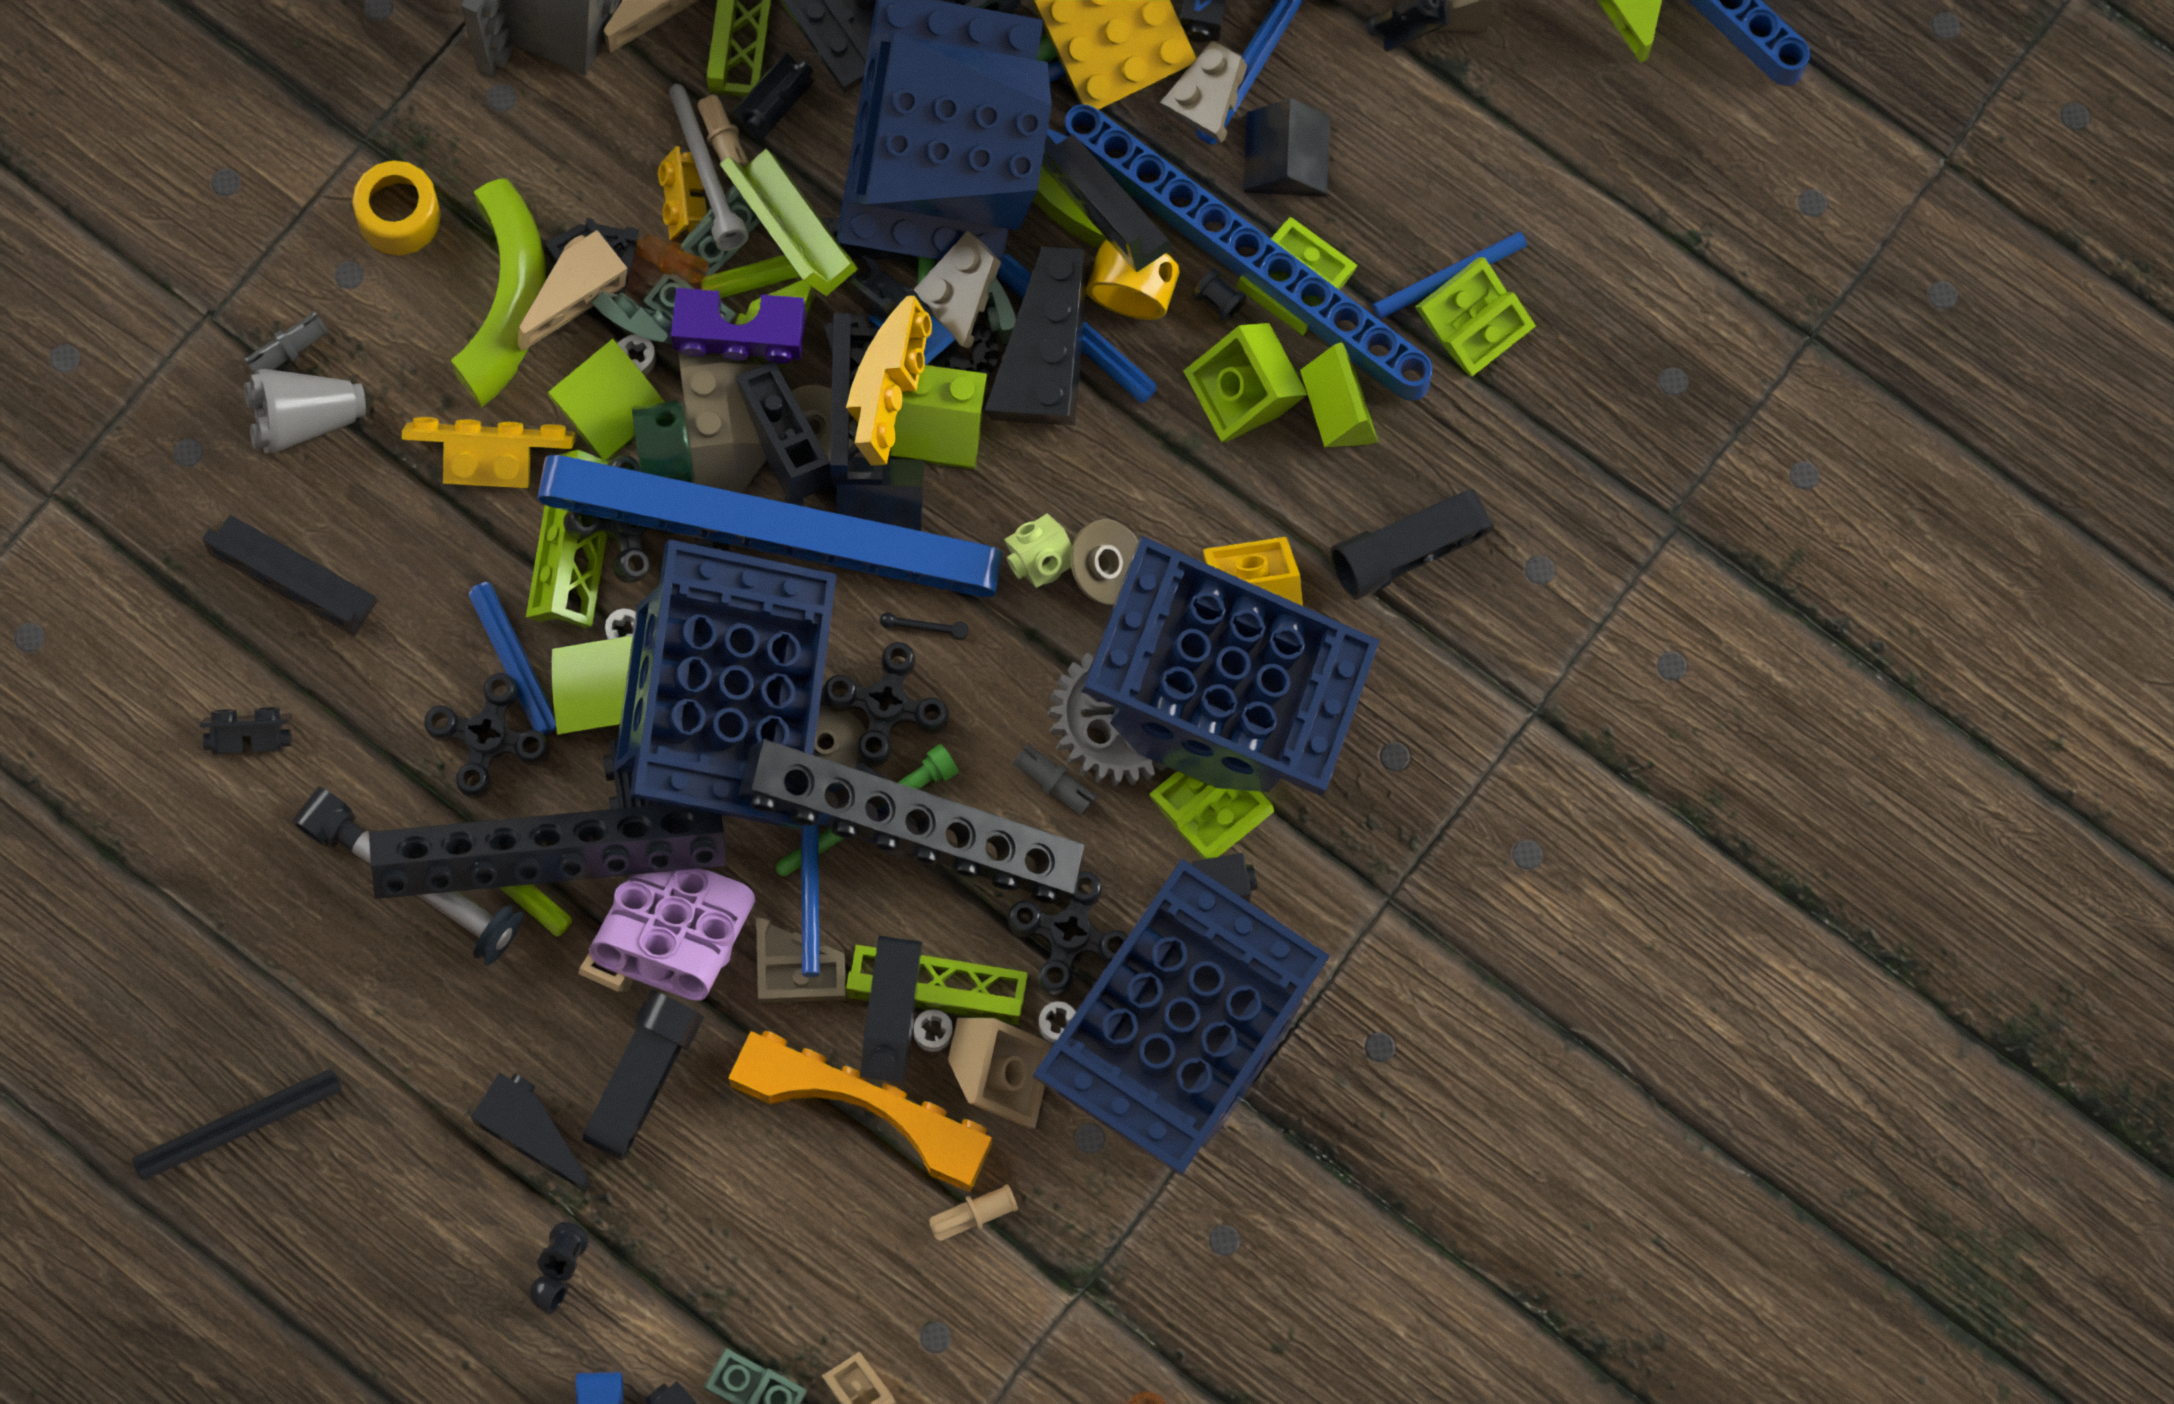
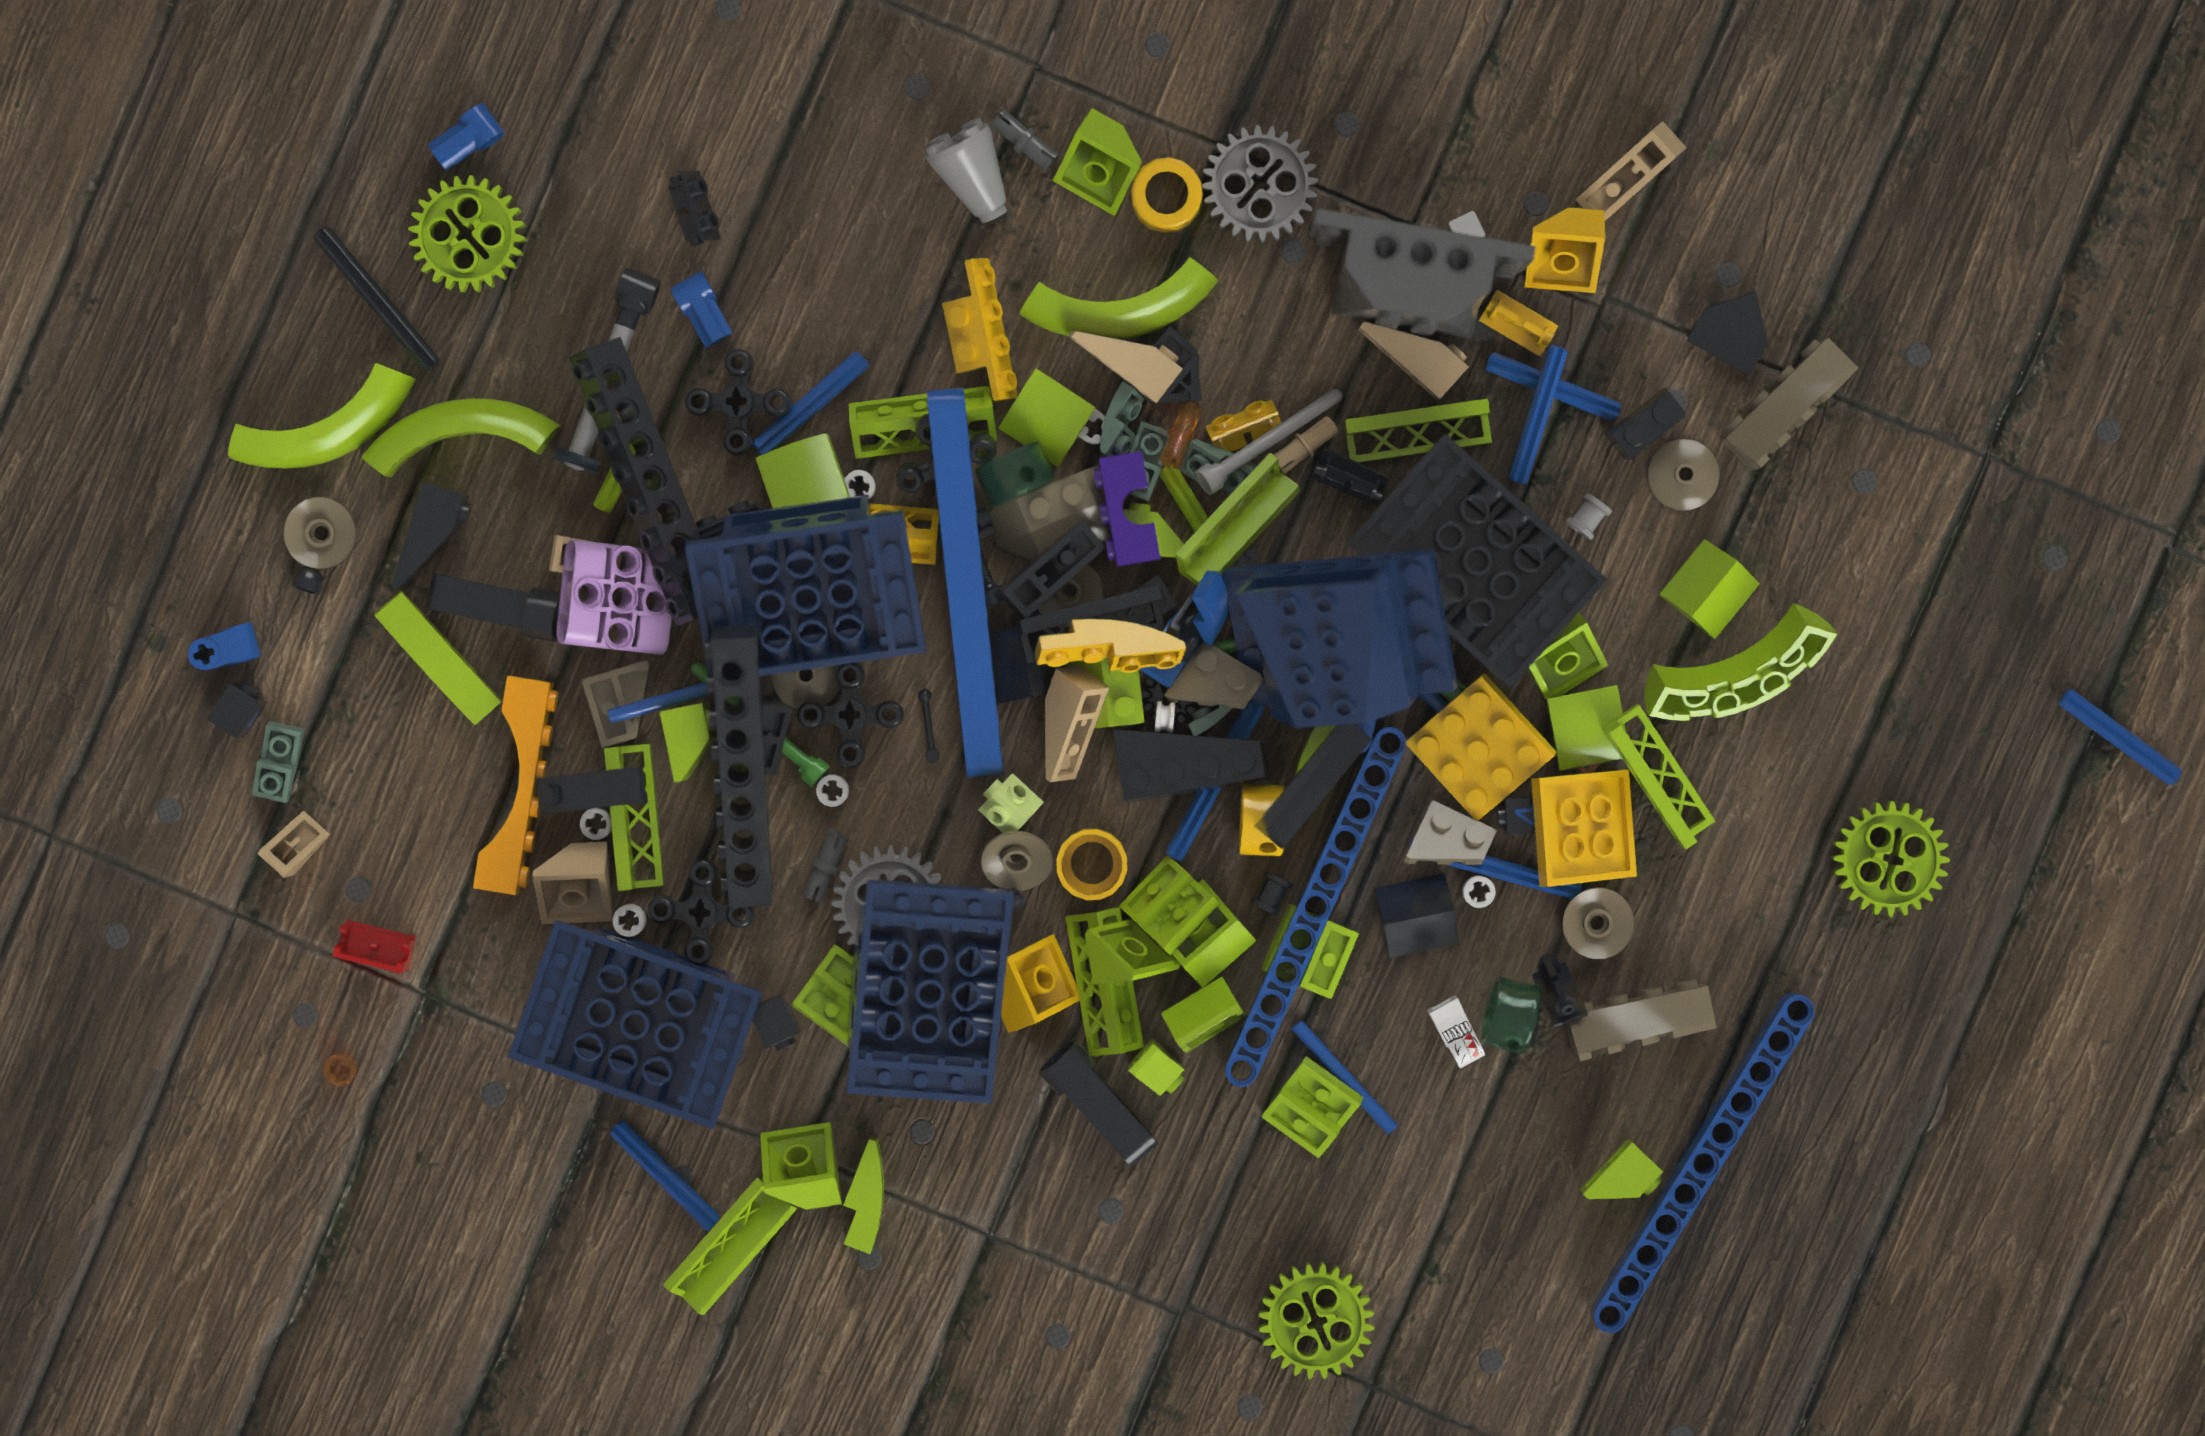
camera: 75 degrees right, 15 degrees up
(77, 957) = (474, 131): none -> blue piece
(180, 959) = (491, 213): none -> lime gear
(290, 574) = (832, 203): black fence -> none
(338, 268) = (1099, 162): none -> lime slope
(355, 752) = (698, 302): none -> blue piece
(385, 1226) = (331, 437): none -> lime brick
(409, 1065) = (457, 419): none -> lime brick
(448, 89) = (1235, 162): none -> light grey gear
(491, 1239) = (302, 527): none -> dark tan dish
(565, 1246) = (340, 584): black bush -> none
(683, 1160) = (437, 657): none -> lime slope
(860, 887) = (687, 737): none -> lime slope
(874, 265) = (1212, 605): none -> blue slope
(957, 456) = (1070, 718): none -> tan slope
(962, 739) = (824, 797): none -> white bush
(973, 1213) = (459, 894): tan axle -> none
(986, 353) = (1164, 717): none -> white bush
(1009, 1329) = (375, 946): none -> red hinge
(1141, 451) = (1082, 889): none -> yellow piece
(1202, 407) = (1169, 904): none -> lime slope
(1246, 462) = (1125, 953): none -> lime slope
(1272, 491) = (1119, 1006): none -> lime fence
(1285, 72) = (1488, 896): none -> white bush
(1371, 1060) = (665, 1175): none -> blue axle
(1385, 467) = (1157, 1068): none -> lime slope
(1400, 892) = (801, 1166): none -> lime slope
(1426, 72) = (1511, 1015): none -> clear green piece
(1428, 141) = (1456, 1031): none -> white leg
(1455, 830) = (867, 1198): none -> lime slope
(1475, 1000) = (729, 1247): none -> lime fence
(1729, 406) = (1287, 1332): none -> lime gear

